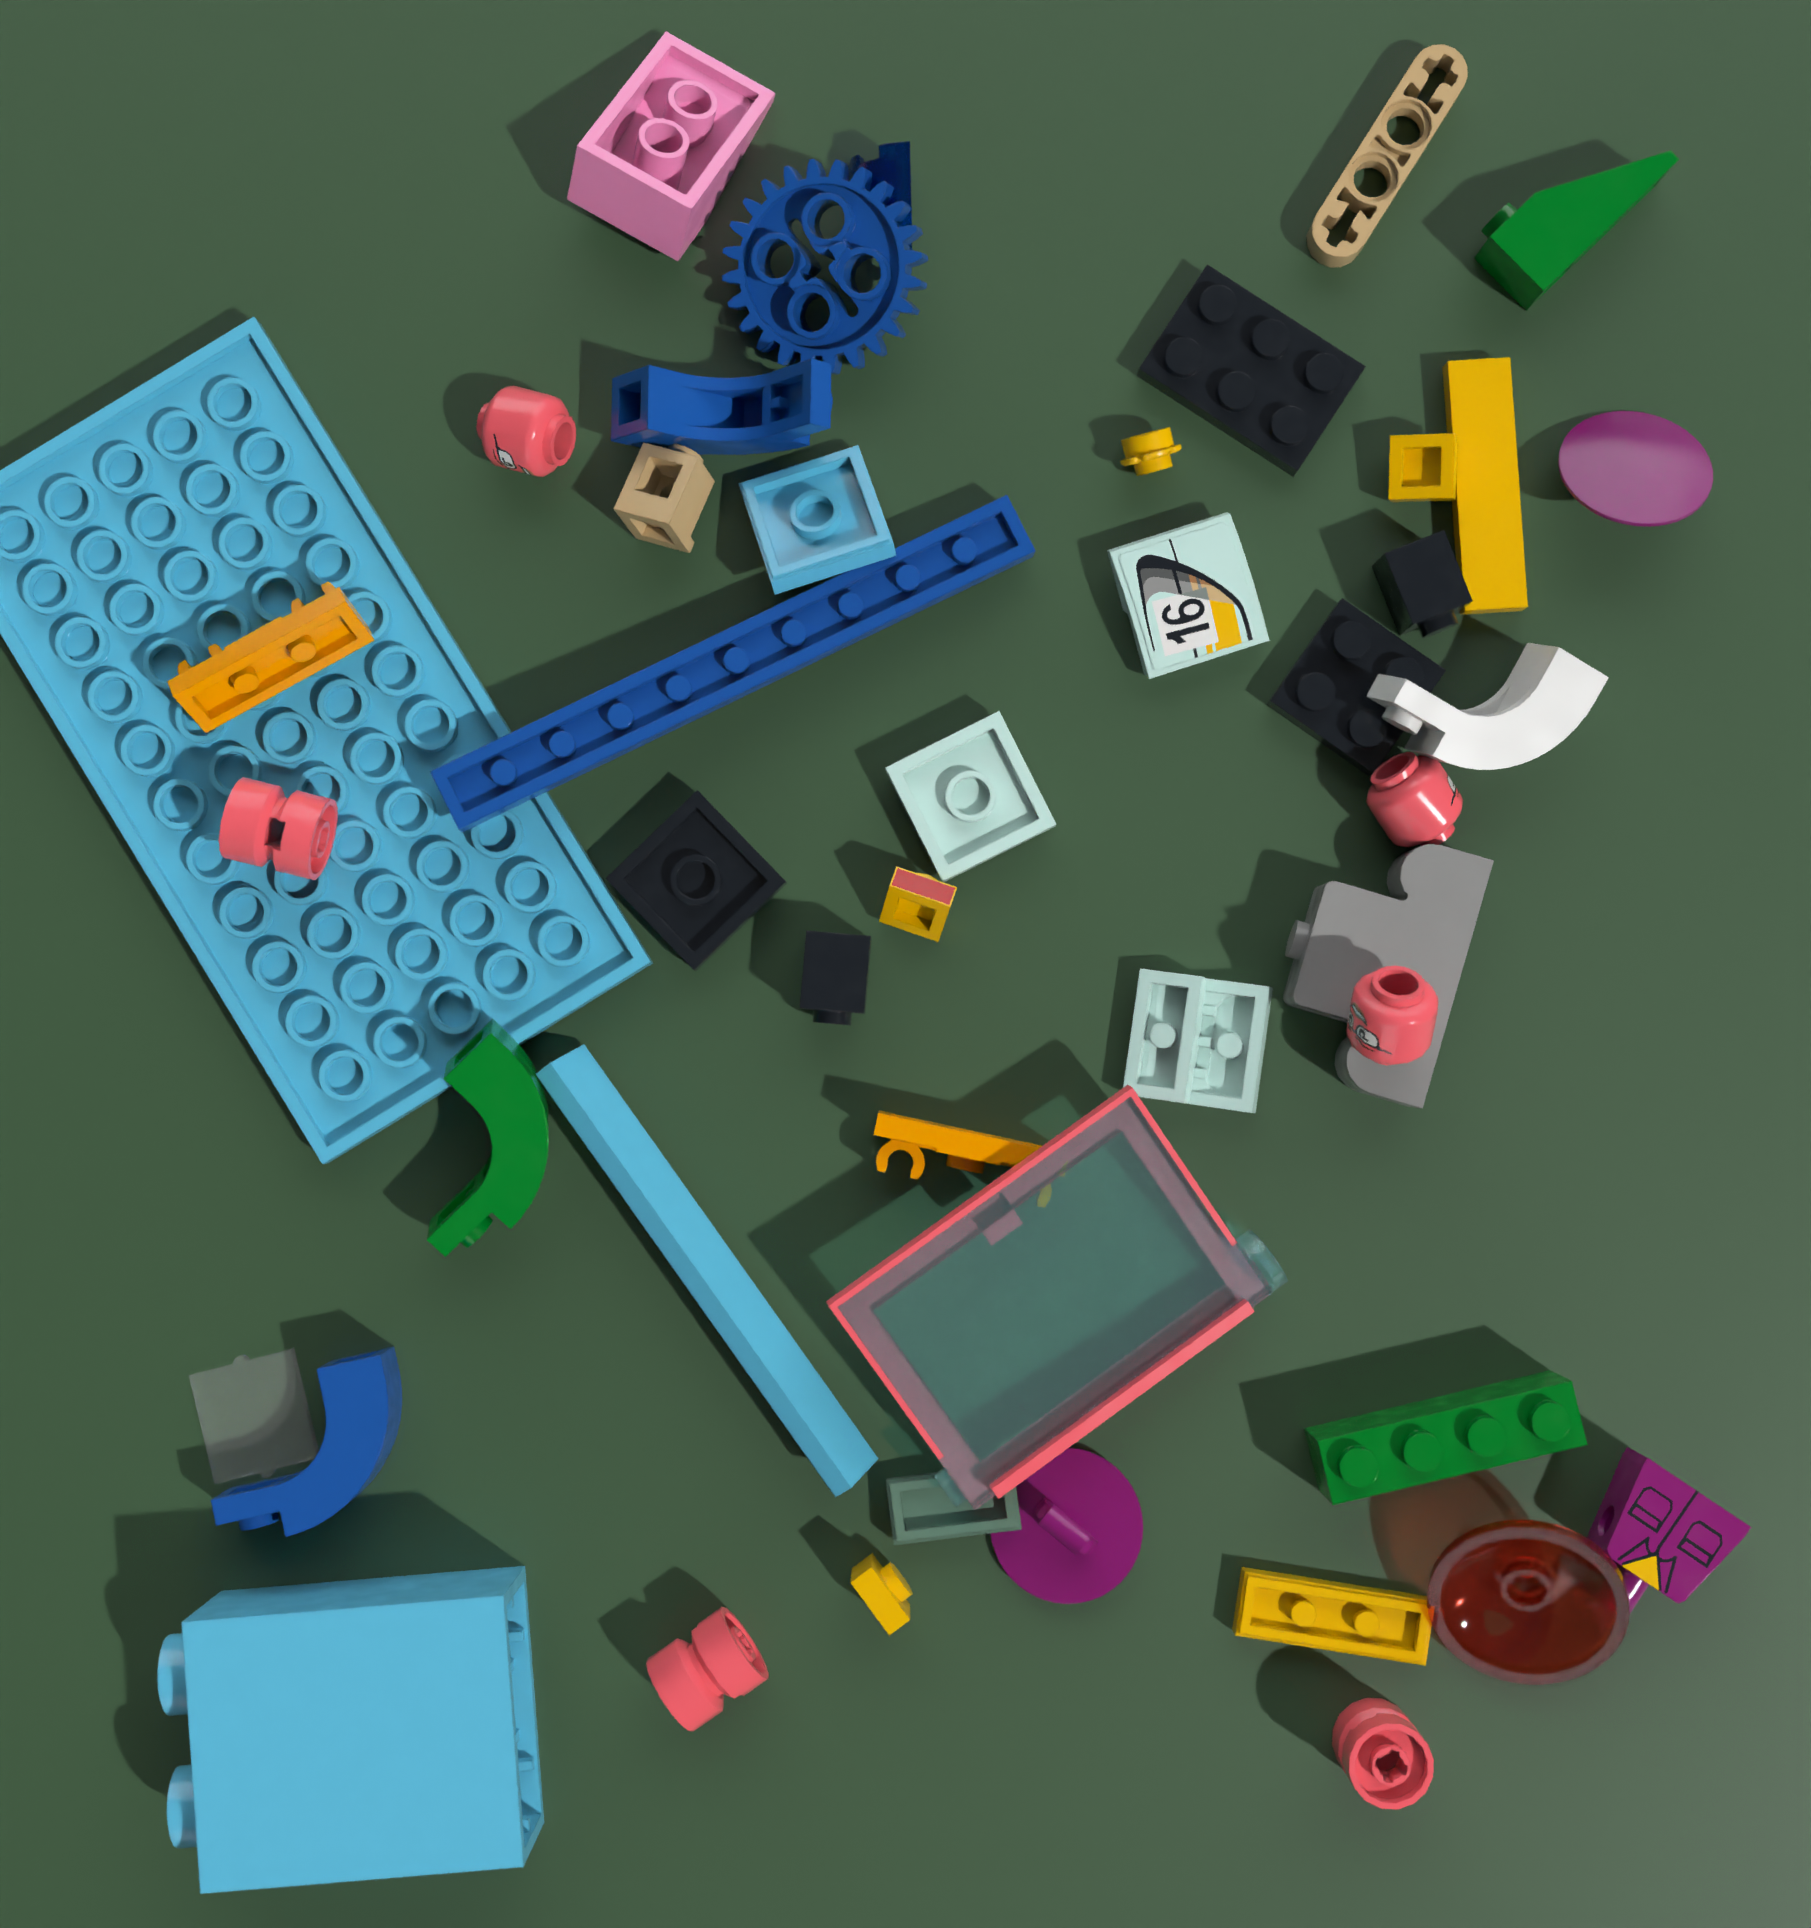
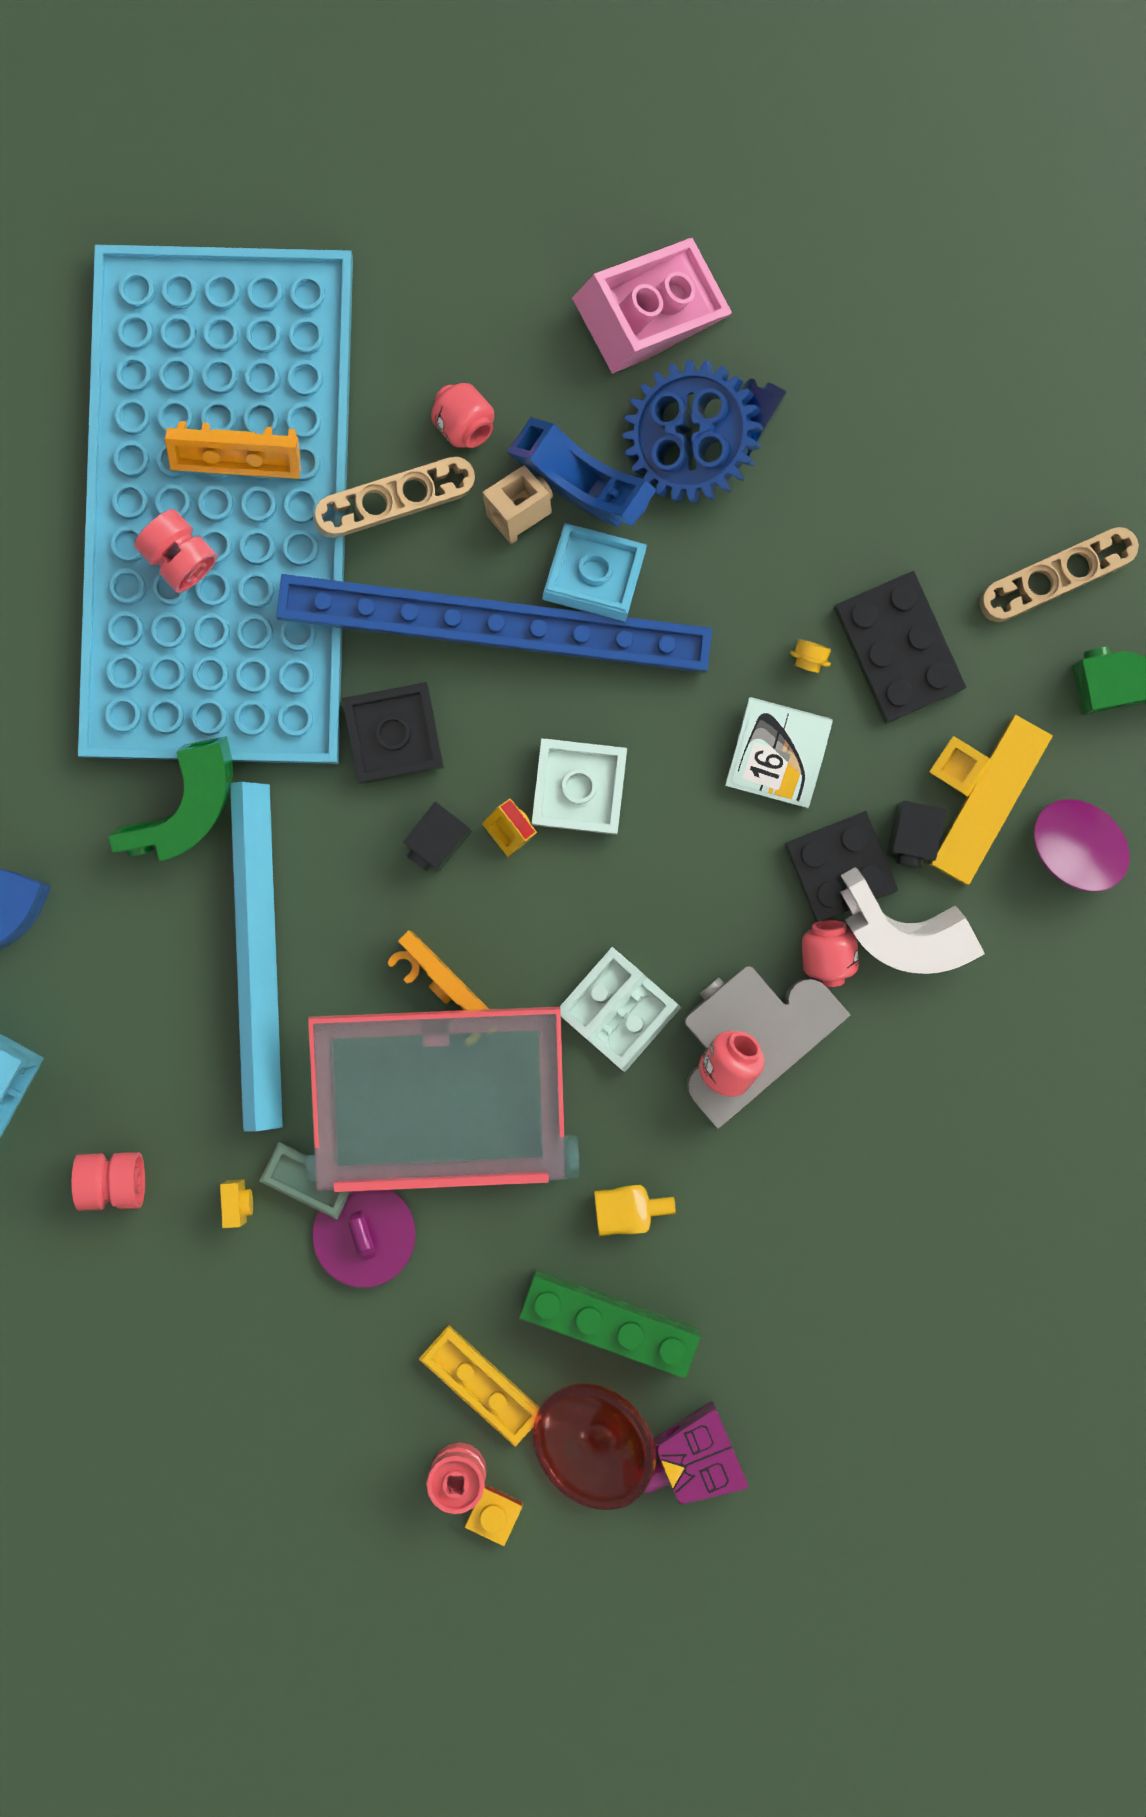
camera: 35 degrees right, 0 degrees up
(513, 591) = (396, 503): none -> tan beam
(1373, 1280) = (628, 1210): none -> yellow piece
(1459, 1767) = (494, 1515): none -> yellow plate

